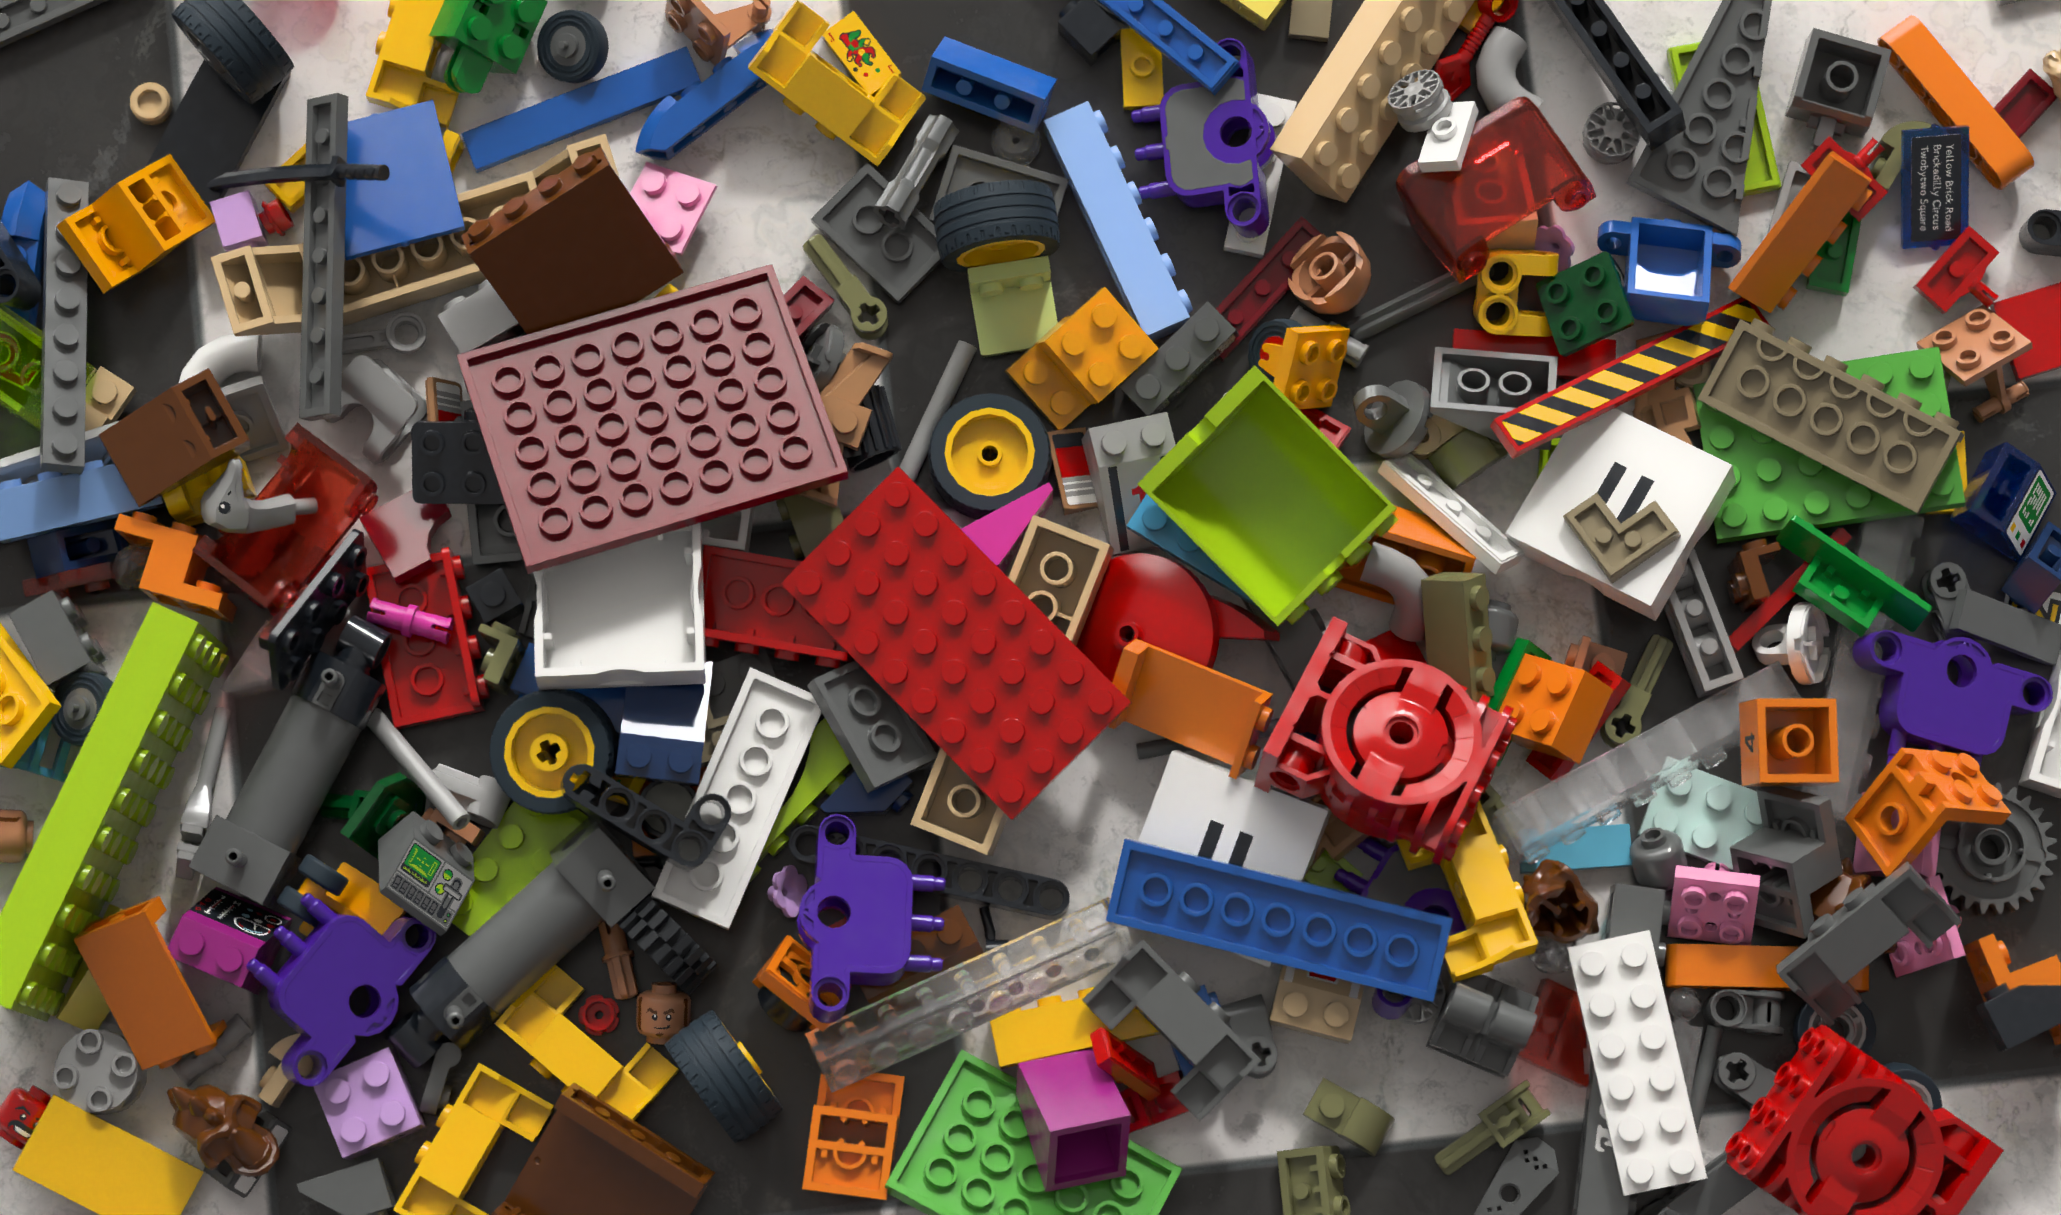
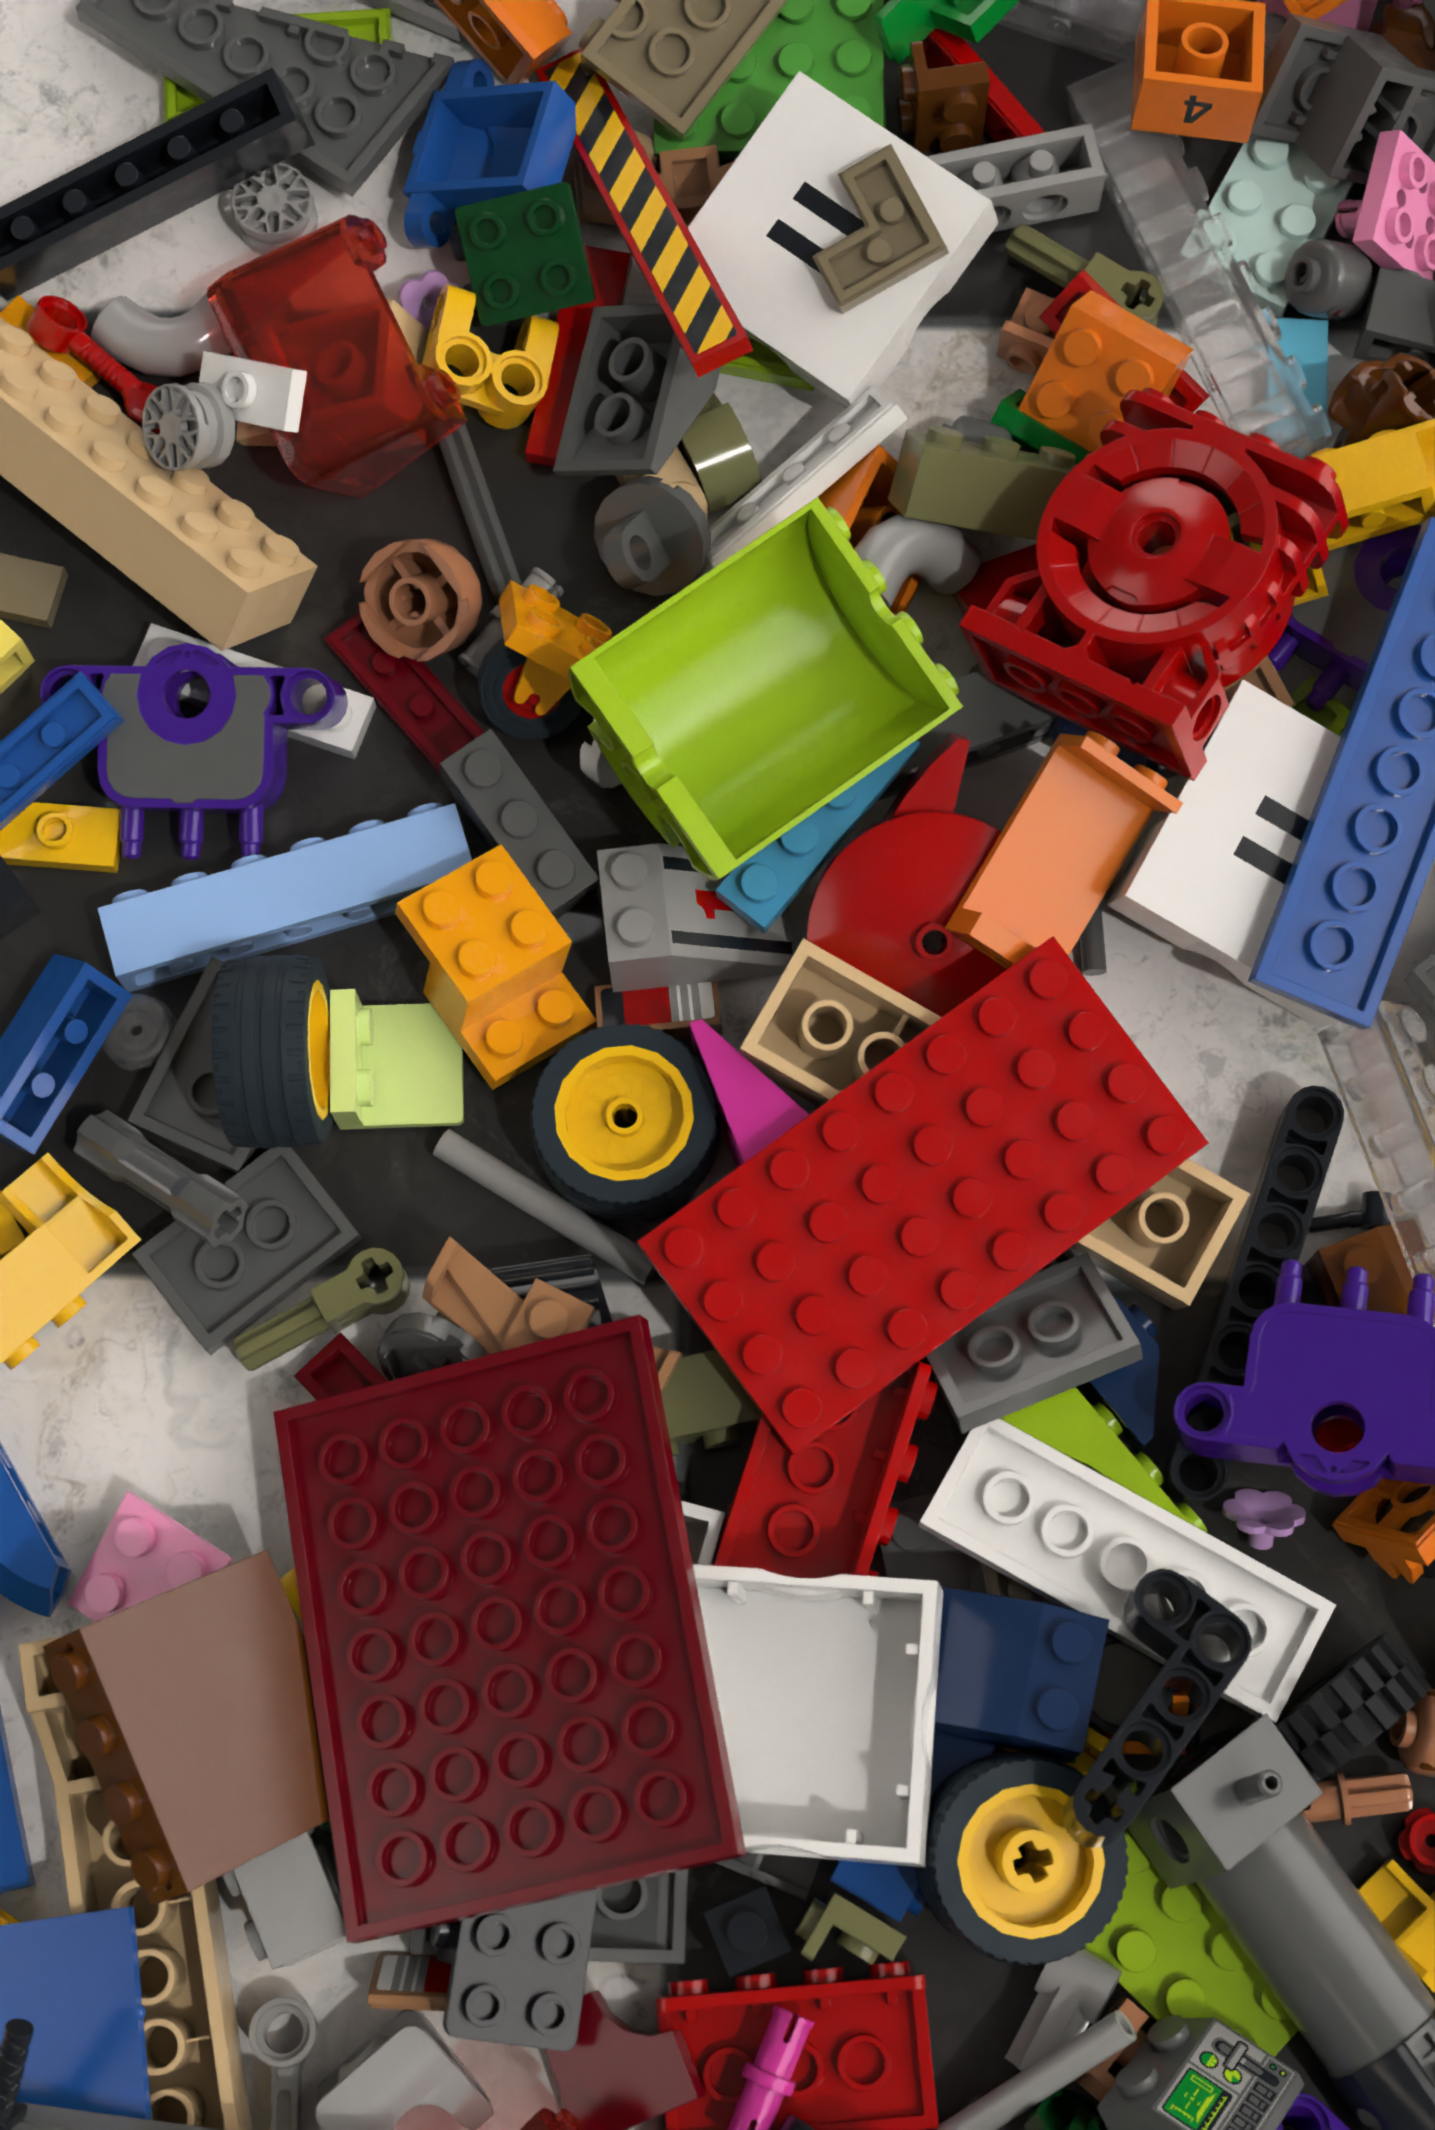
camera: 80 degrees left, 5 degrees down
(1800, 644) = (1045, 62): white tile -> none

